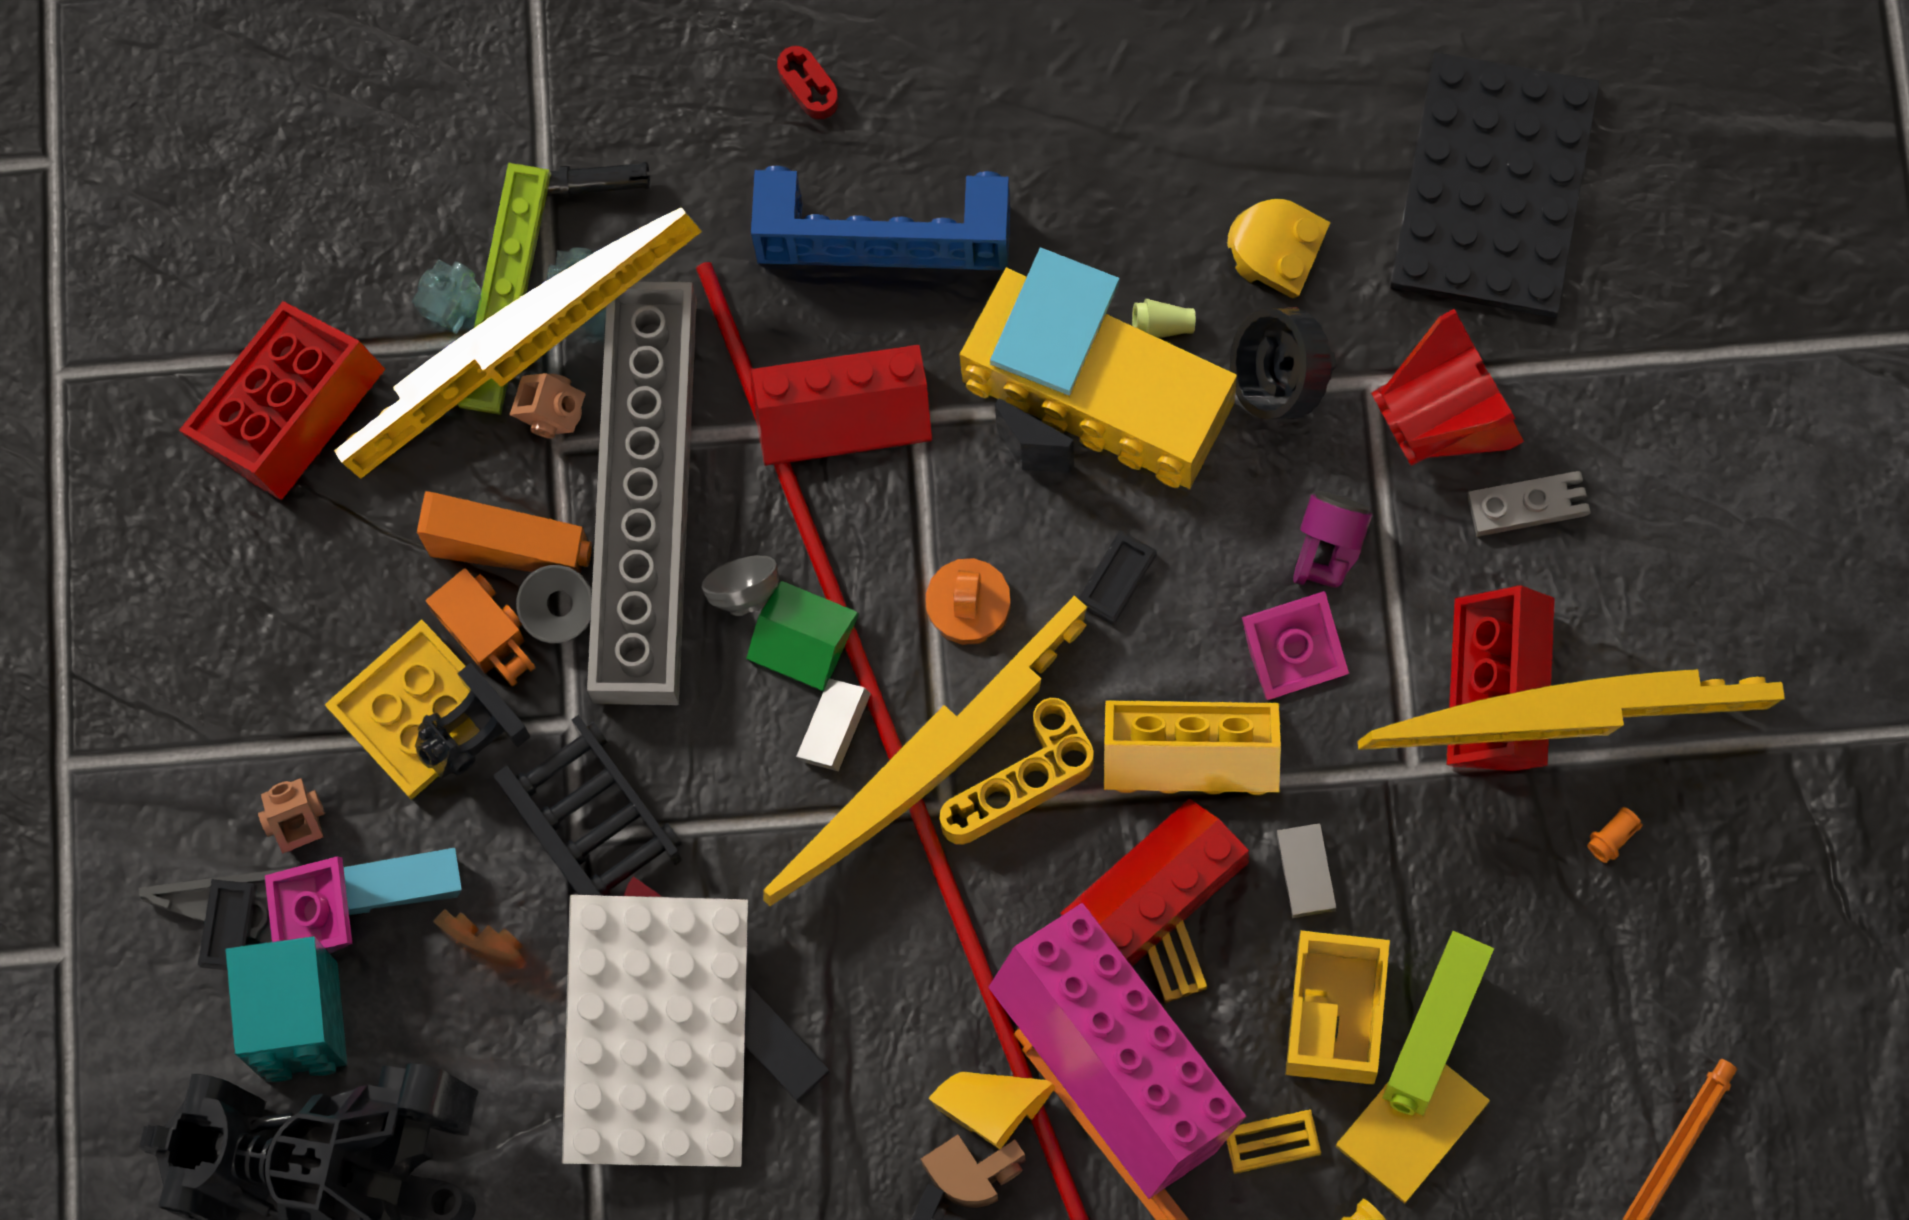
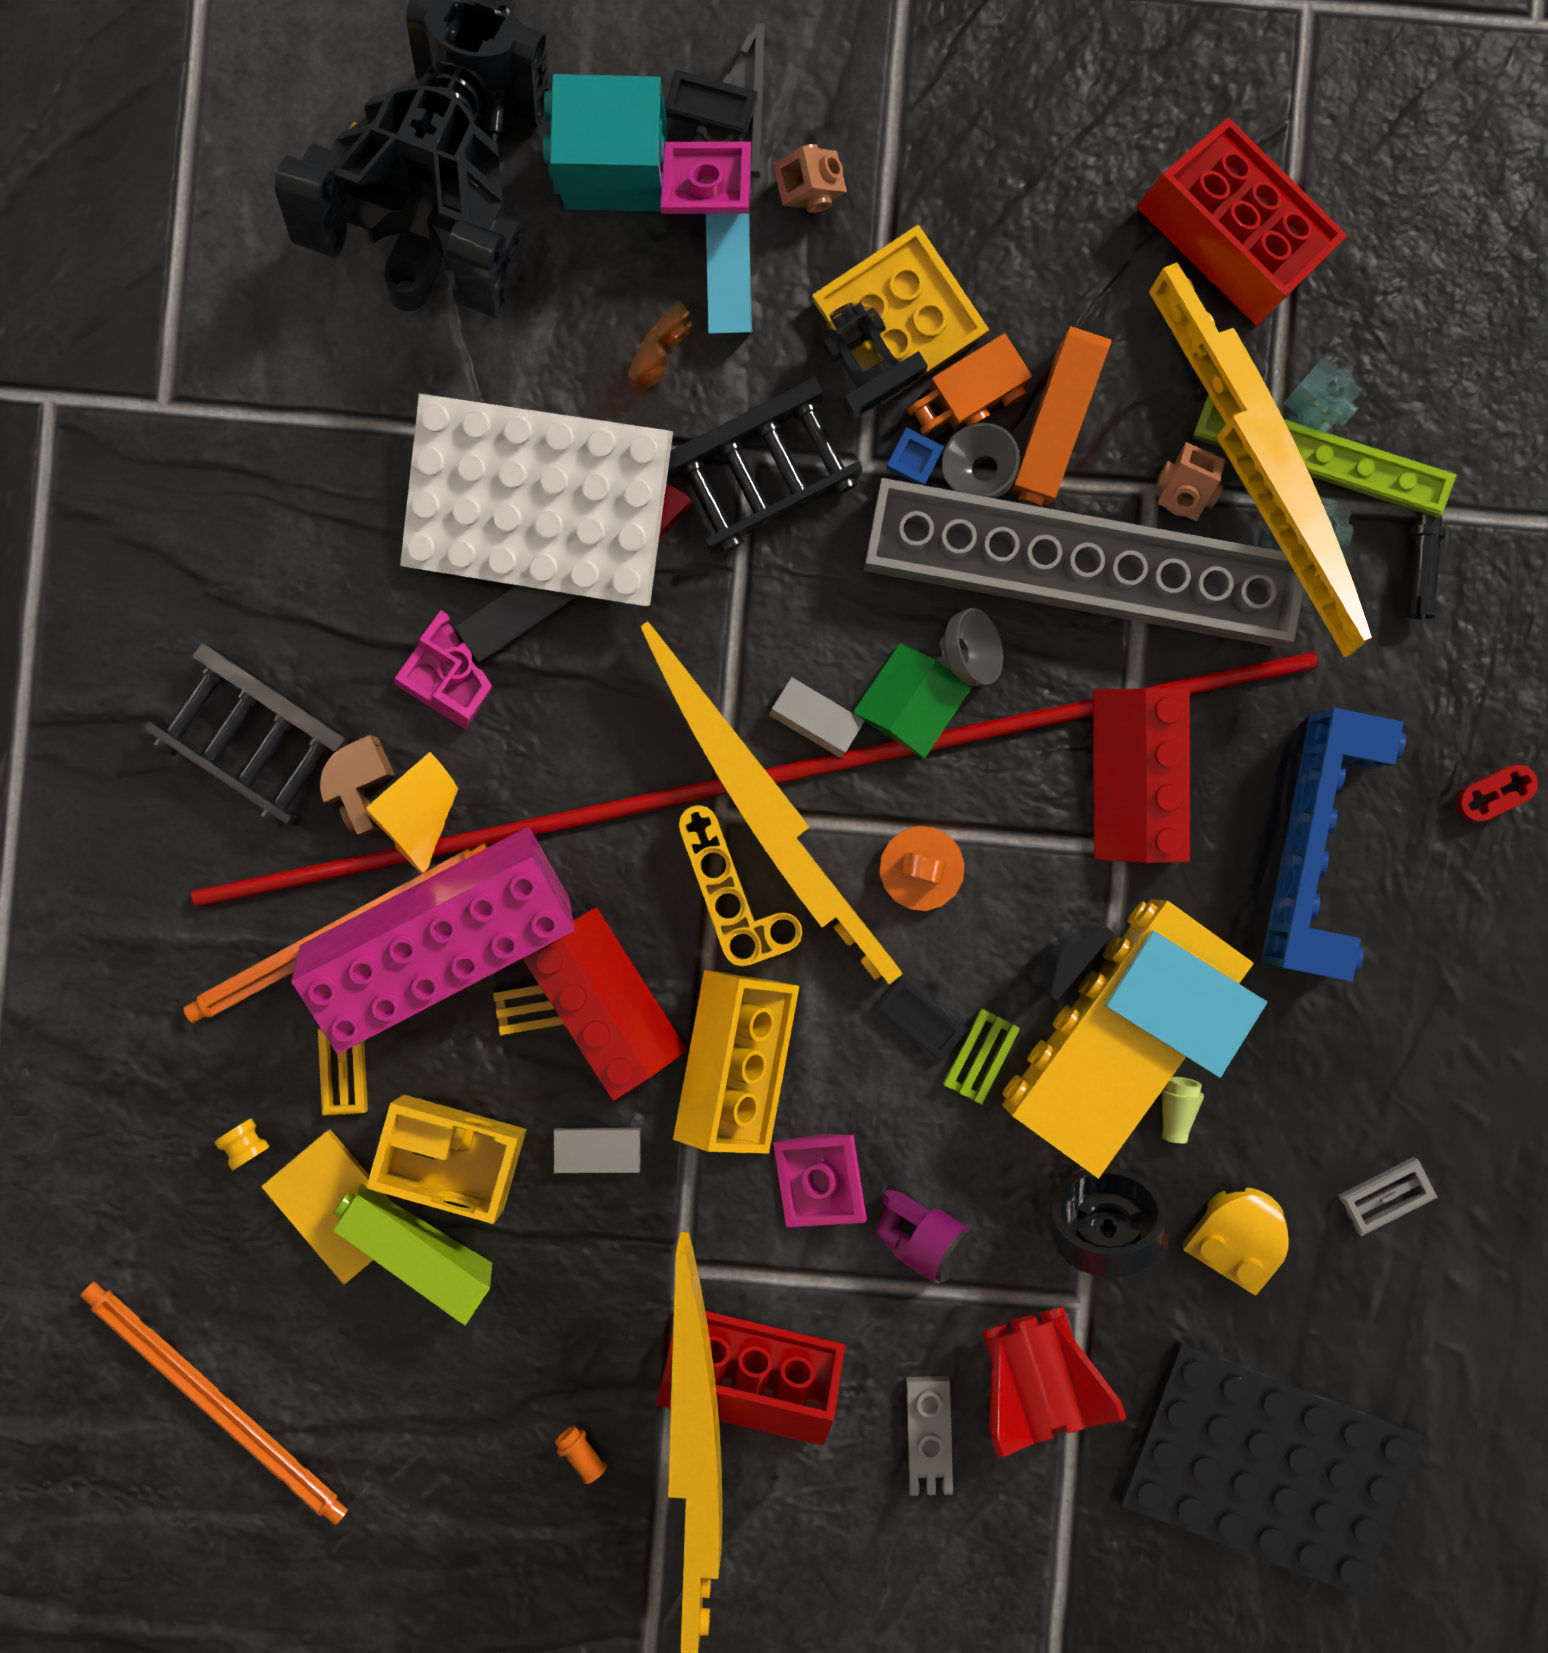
camera: 90 degrees right, 15 degrees up
(558, 672) = (914, 457): none -> blue plate
(847, 1103) = (444, 674): none -> dark pink slope
(1146, 498) = (996, 1063): none -> lime tile
(1232, 146) = (1381, 1180): none -> light grey tile

